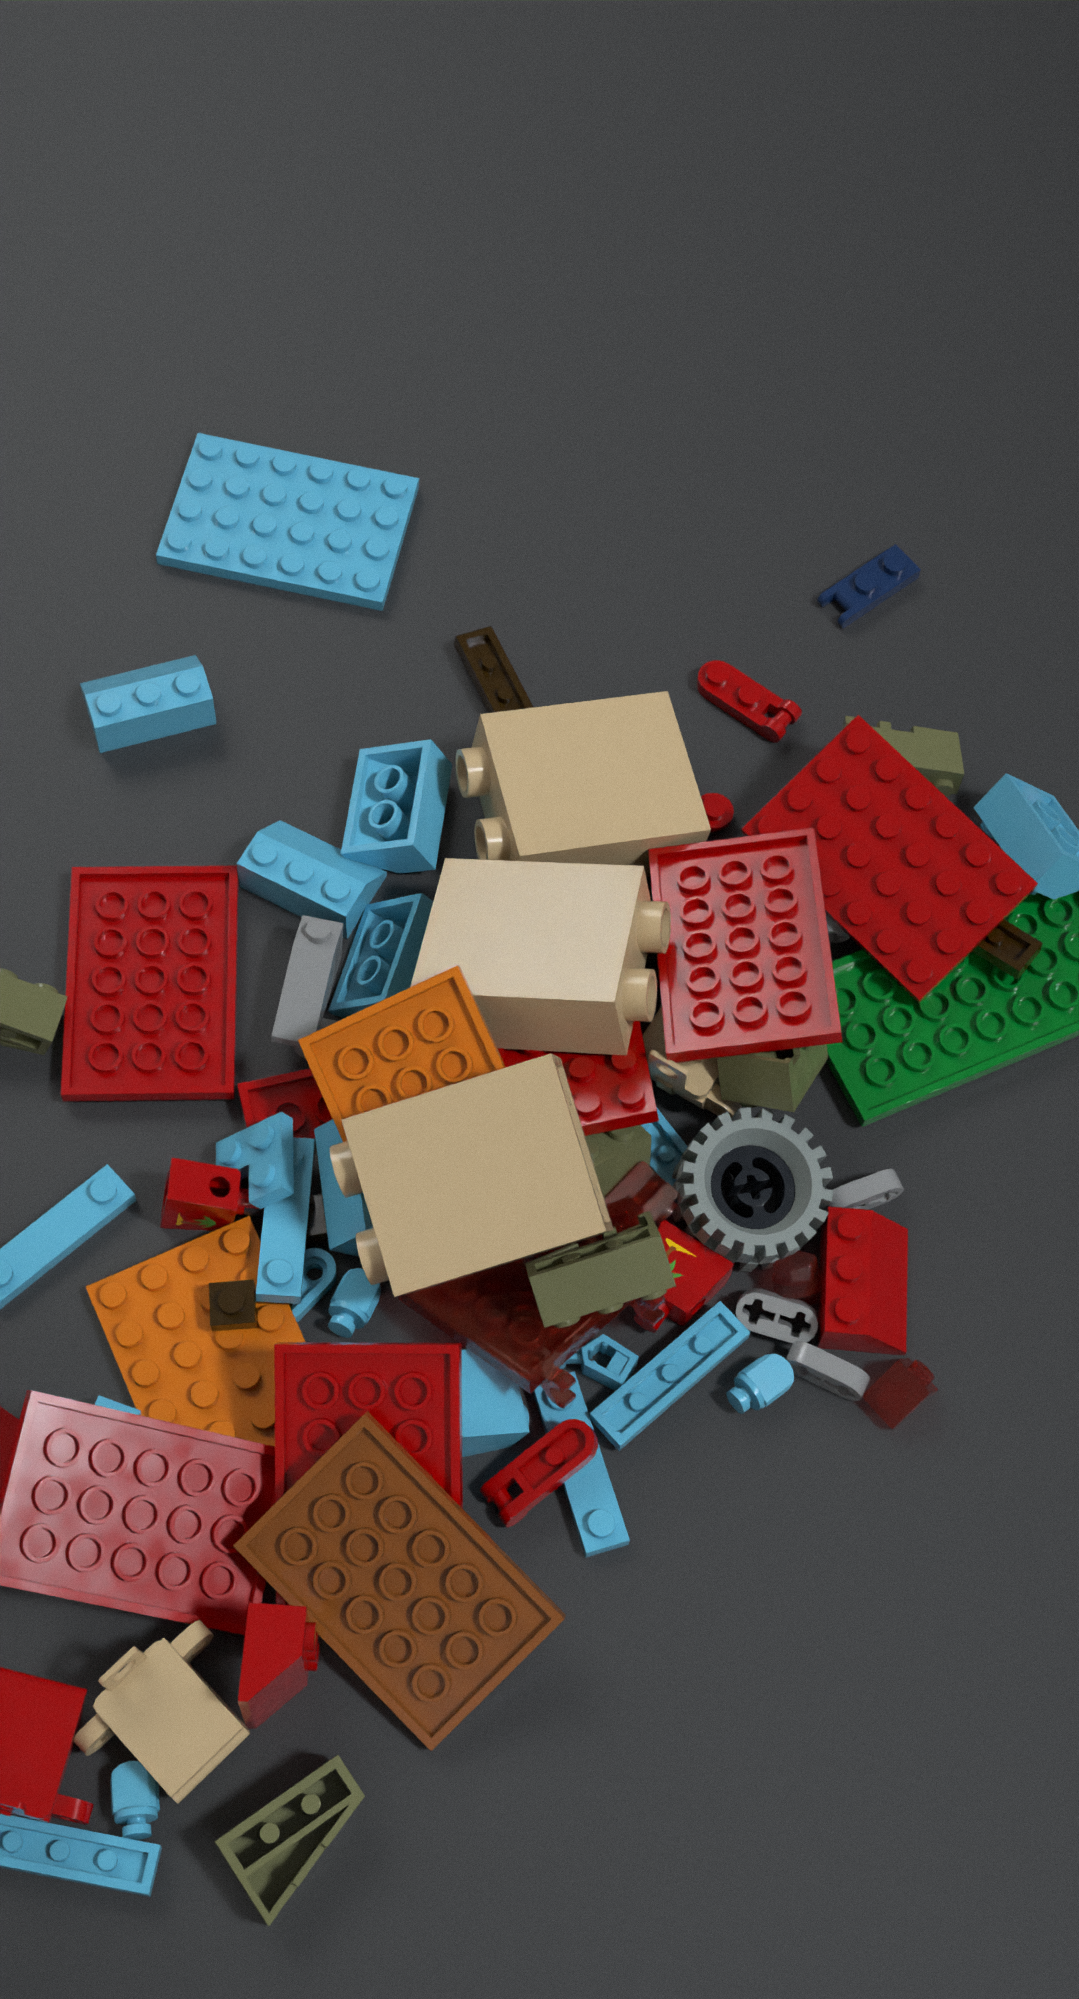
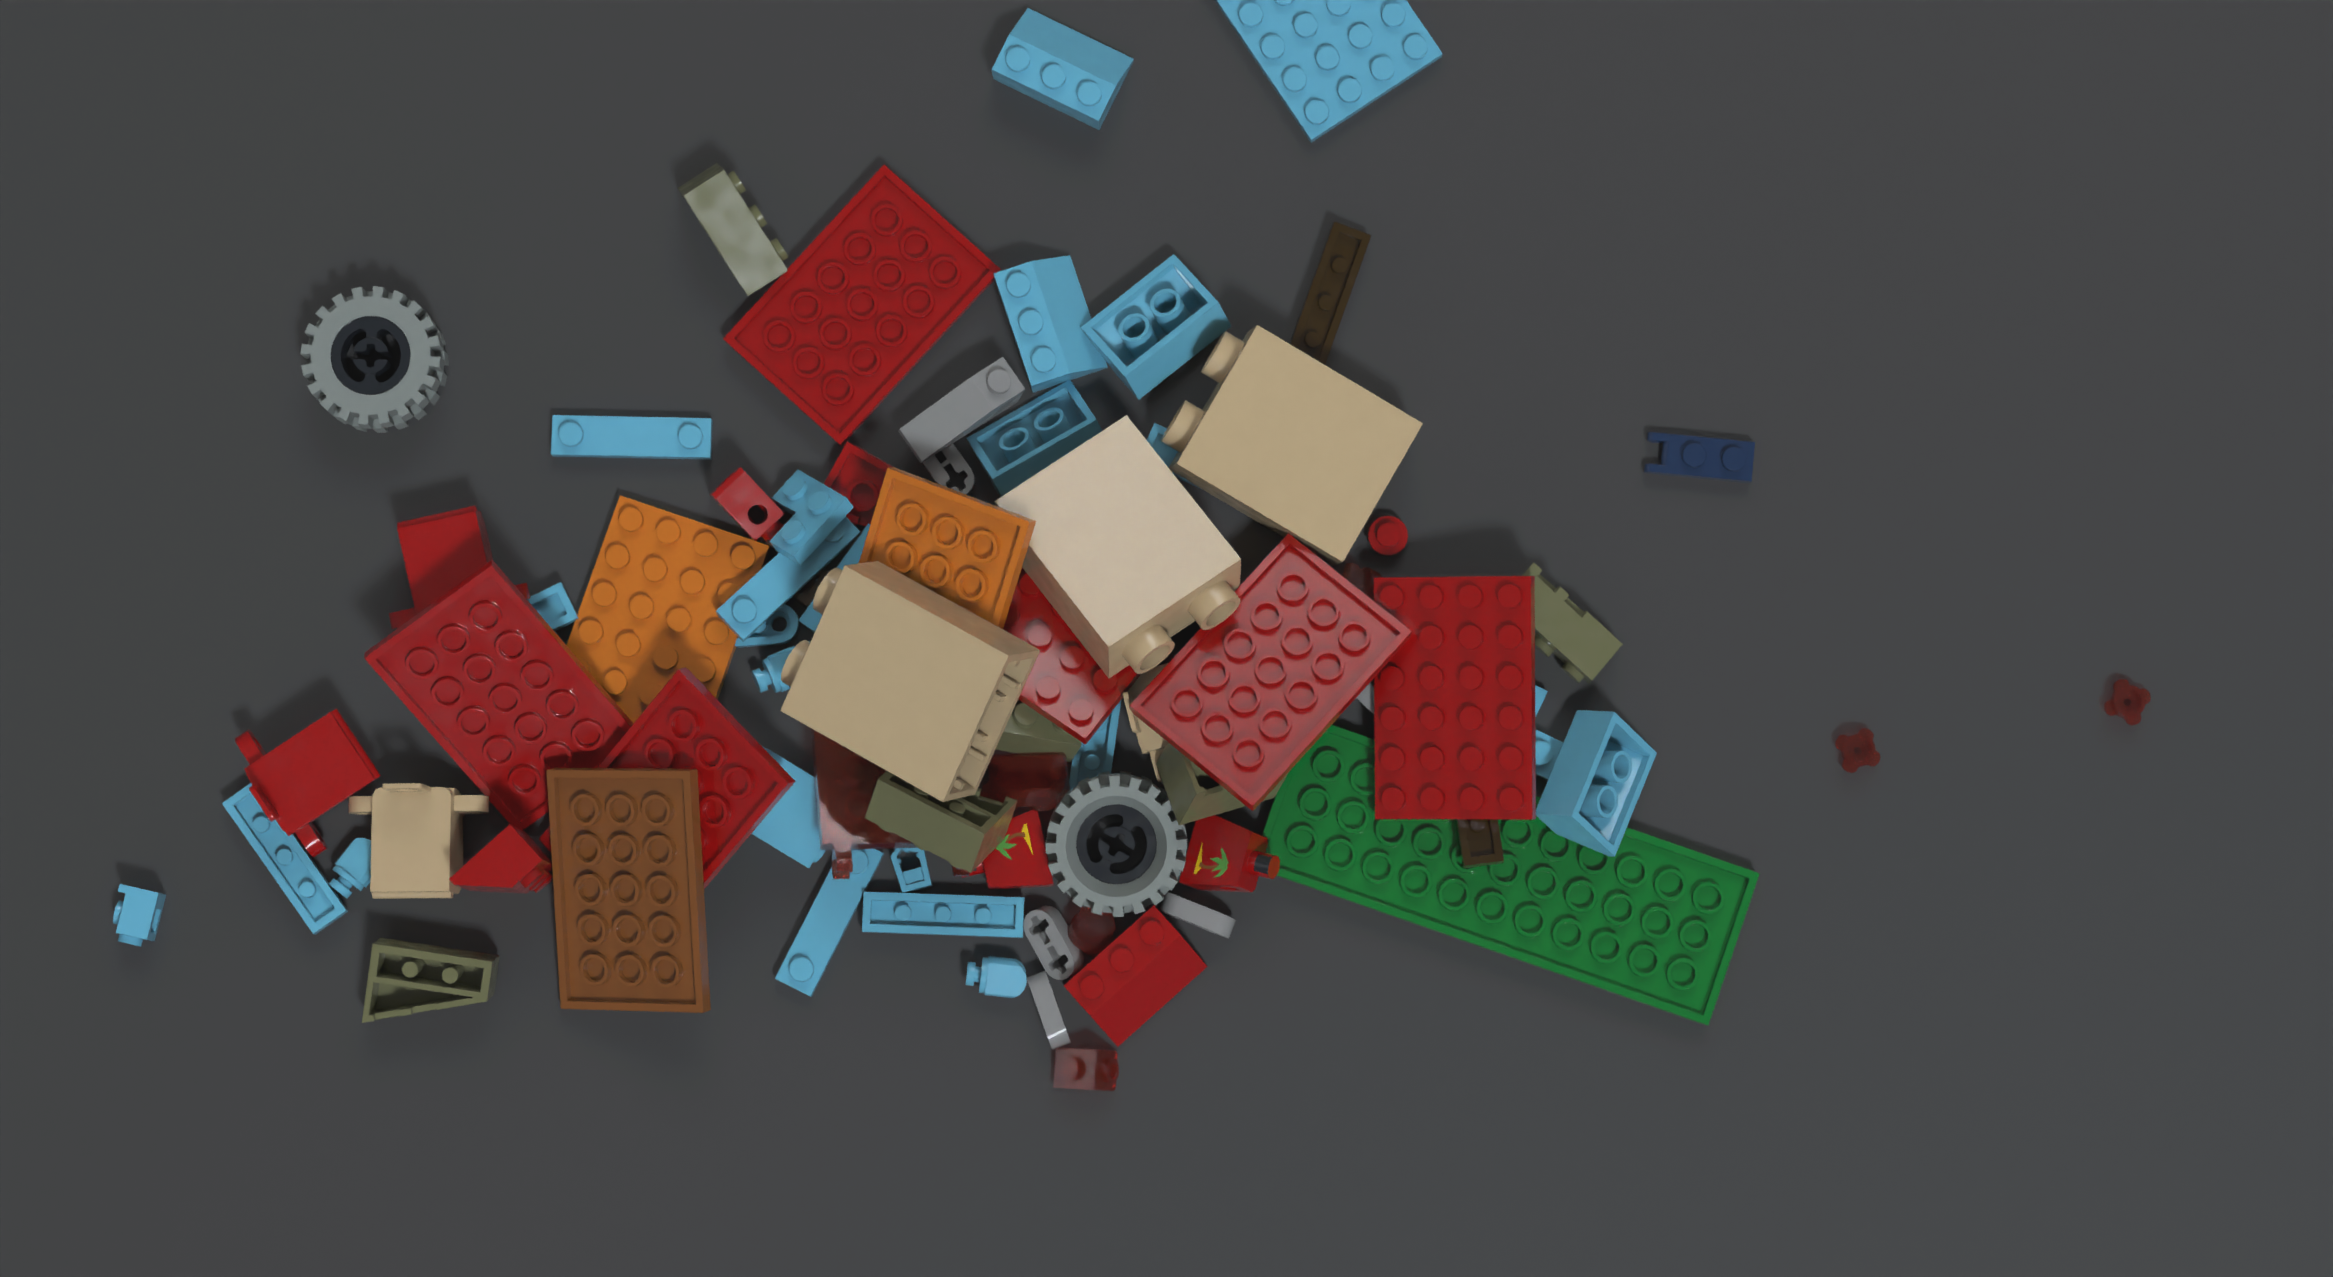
camera: 50 degrees right, 20 degrees up
(232, 1305) = (697, 602): dark brown plate -> none
(541, 1469) = (796, 899): red plate -> none
(746, 700) = (1506, 466): red plate -> none
(844, 1124) = (1226, 857): none -> red torso

